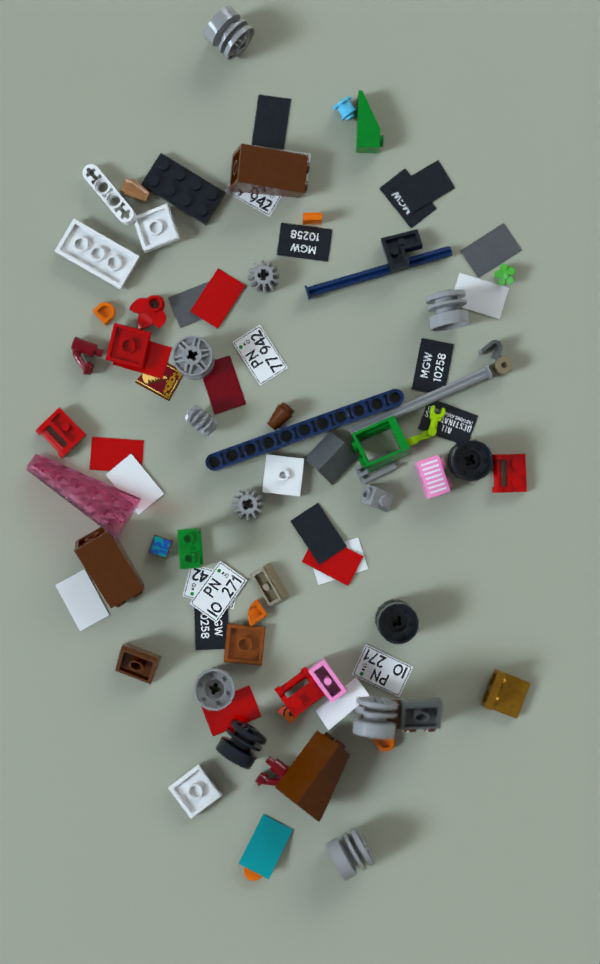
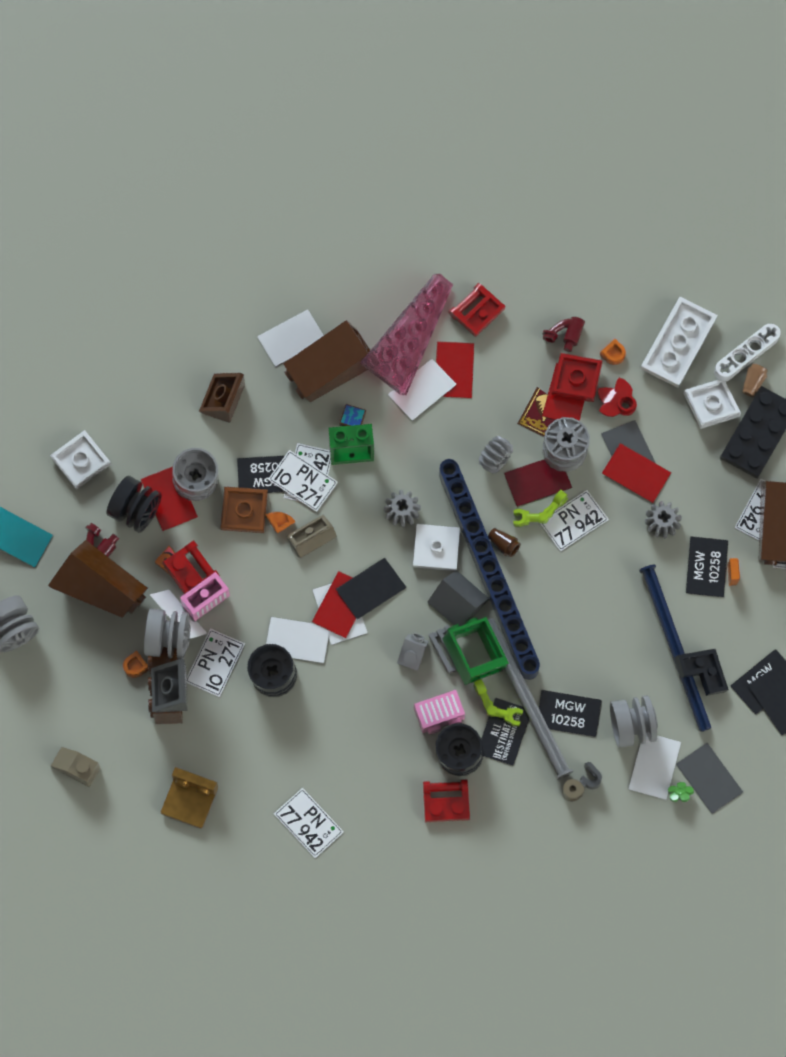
camera: 90 degrees right, 15 degrees down
(258, 381) = (542, 517): none -> lime piece
(363, 598) = (299, 638): none -> white sticker
(475, 792) = (76, 766): none -> dark tan slope
(524, 591) = (308, 823): none -> white sticker

